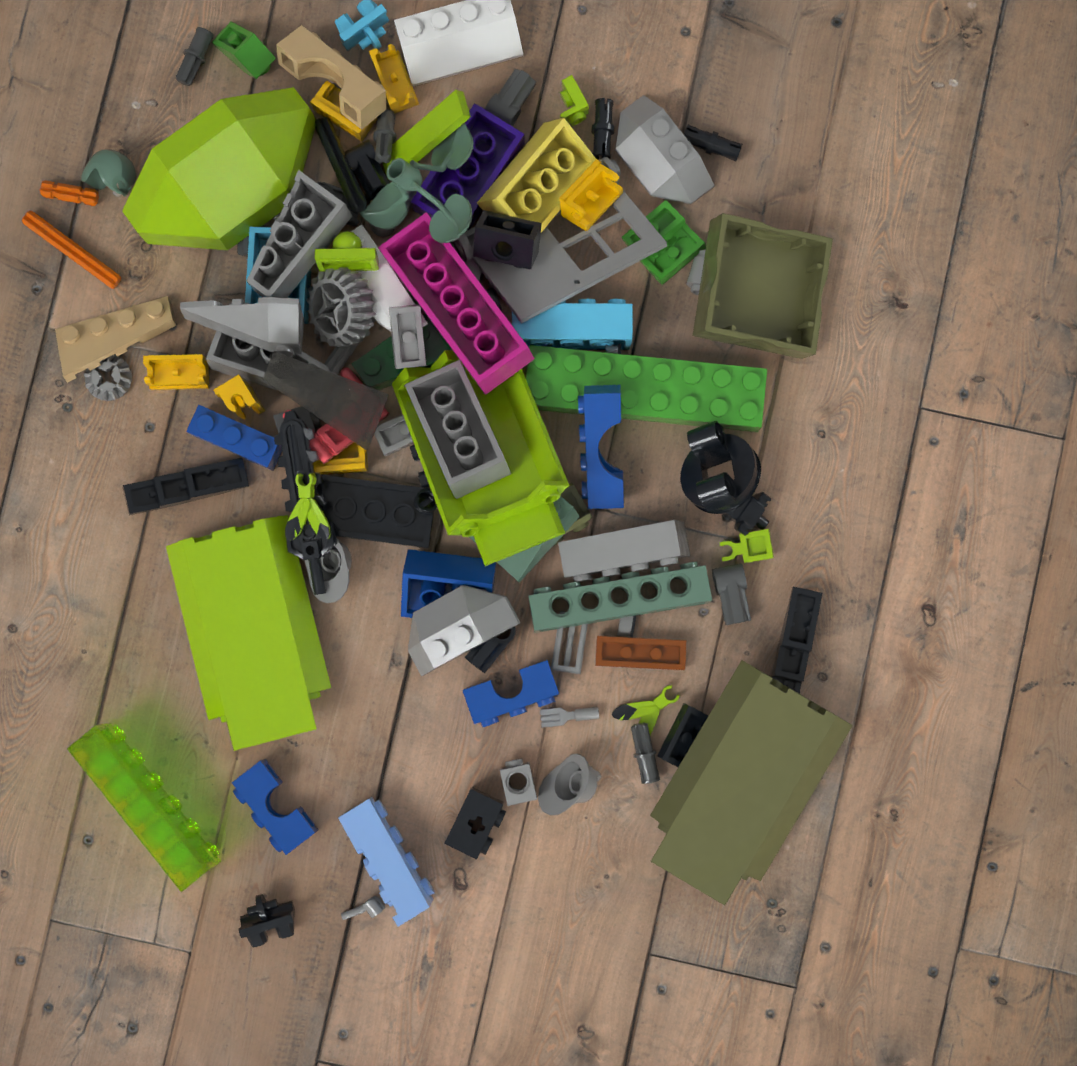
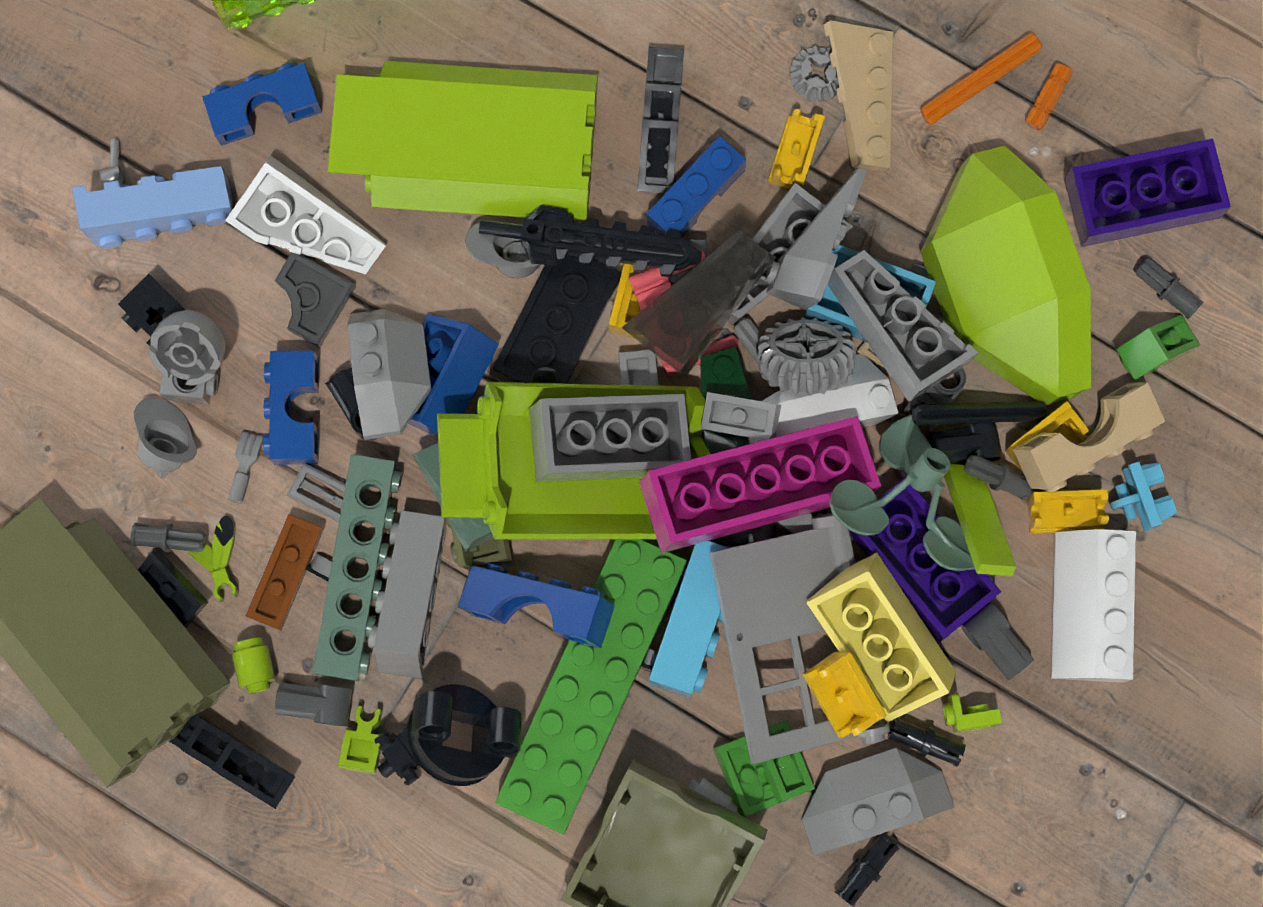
camera: 105 degrees right, 5 degrees down
(109, 168) = (1059, 148): sand green helmet -> none
(123, 91) = (1147, 192): none -> dark purple brick
(237, 393) = (740, 214): yellow hinge -> none
(265, 917) = (143, 56): black hips -> none
(307, 508) = (579, 241): lime piece -> none
(348, 253) = (864, 379): lime tile -> none
(357, 748) = (294, 215): none -> white wedge
(415, 709) = (315, 297): none -> dark grey tile
(494, 786) = (187, 347): none -> light grey cylinder
(507, 239) = (817, 570): black brick -> none
(720, 651) = (253, 665): none -> lime brick

